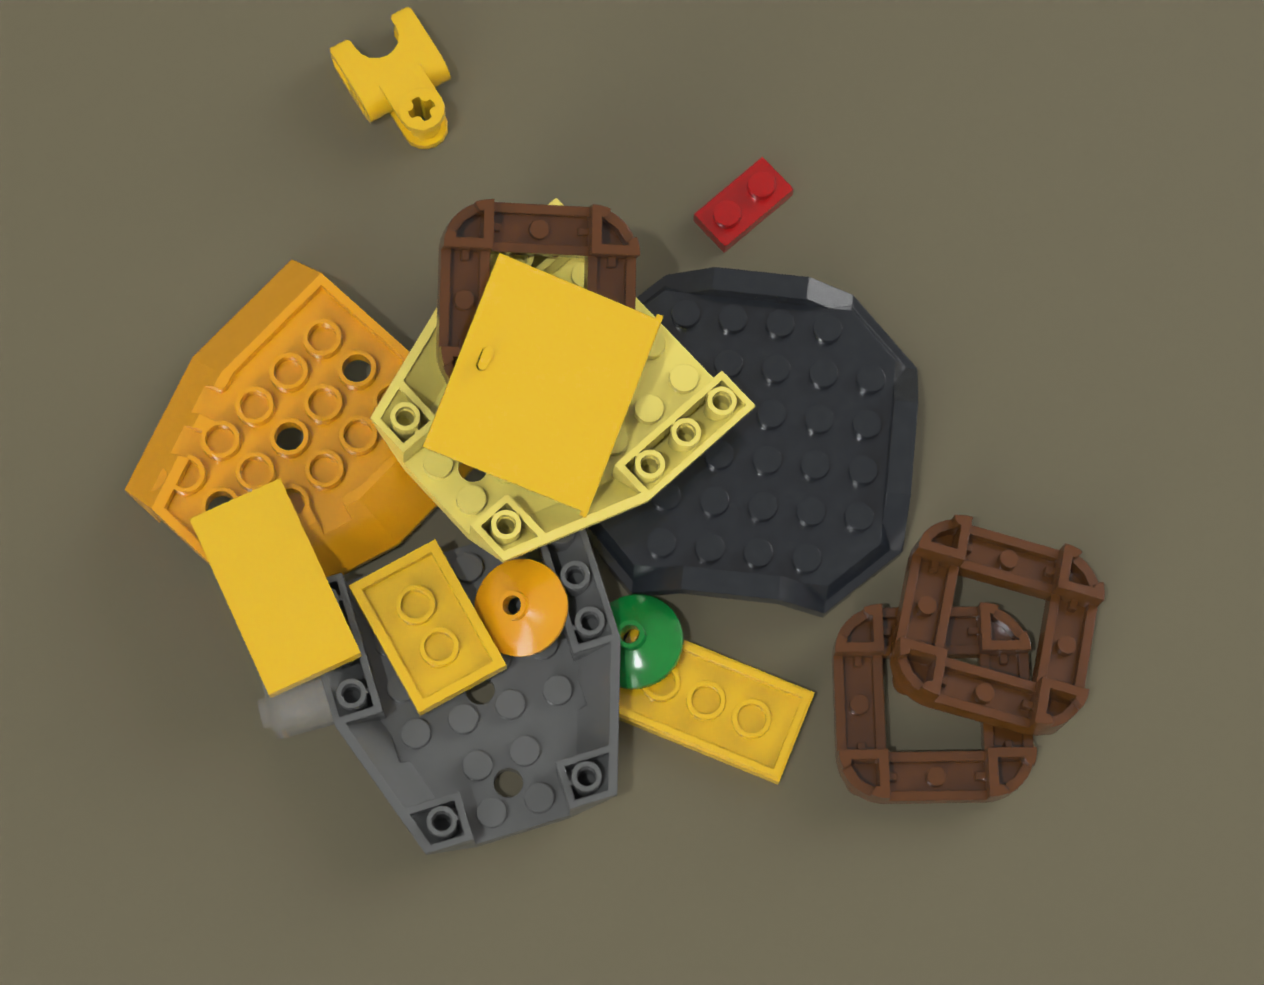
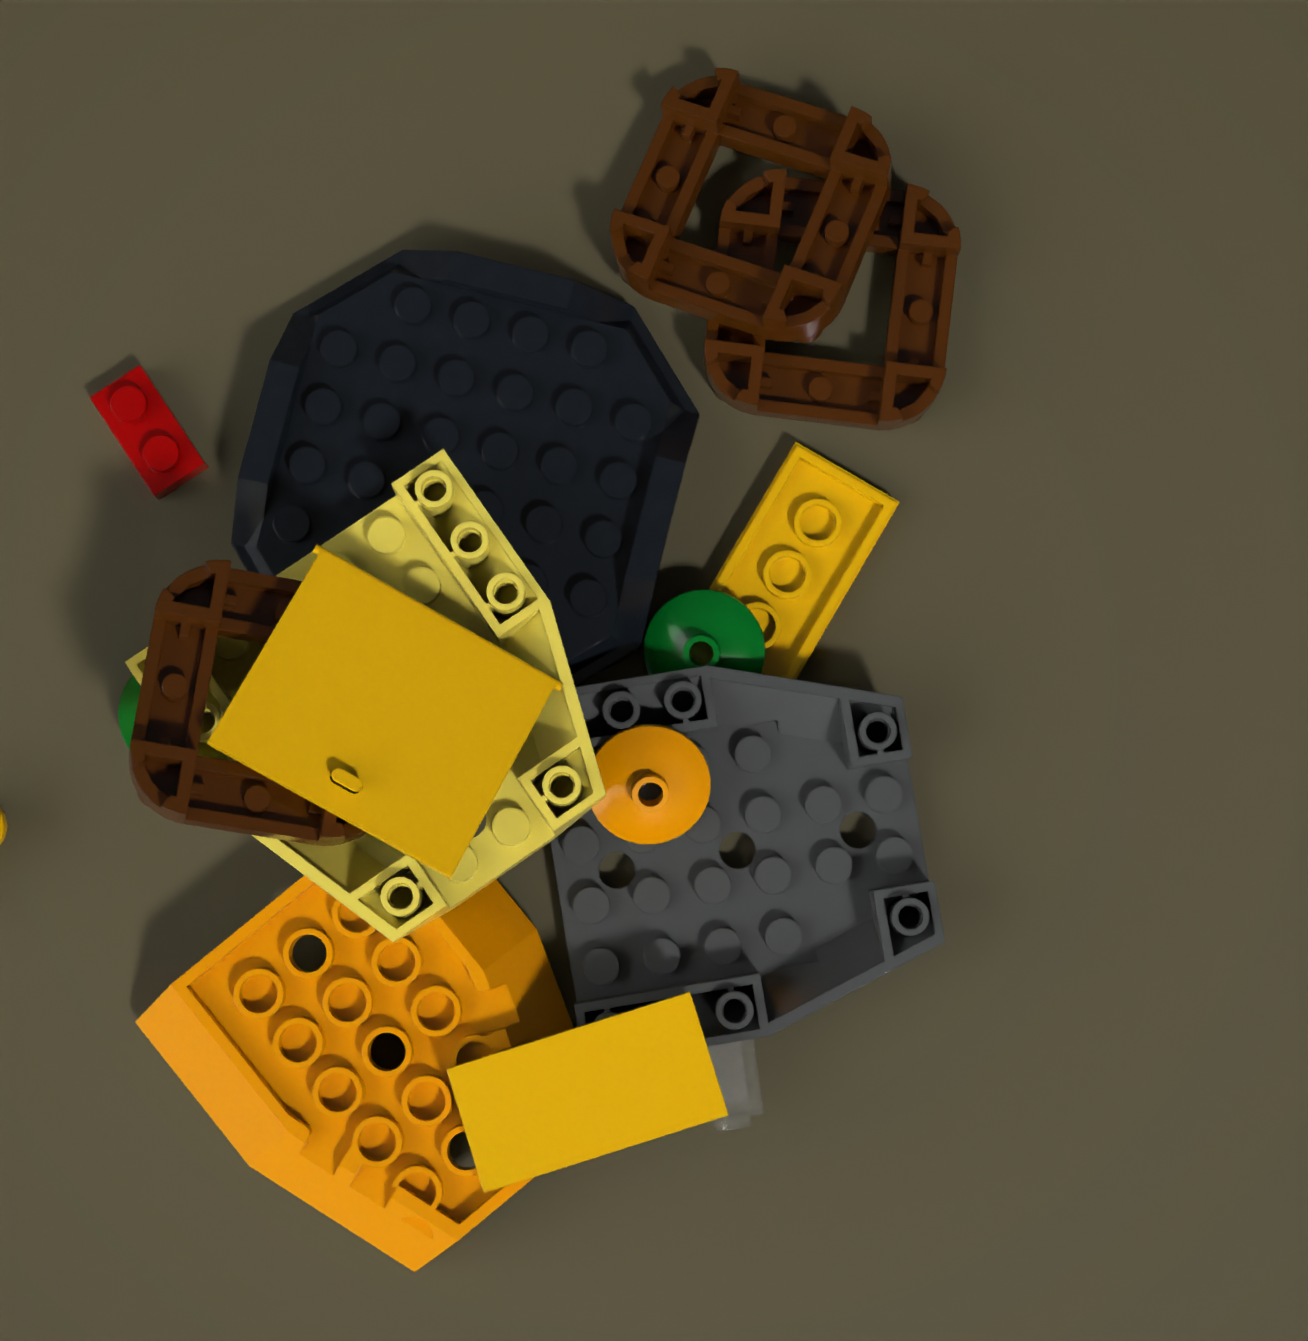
camera: 75 degrees left, 10 degrees up
(427, 627) = (657, 904): yellow plate -> none

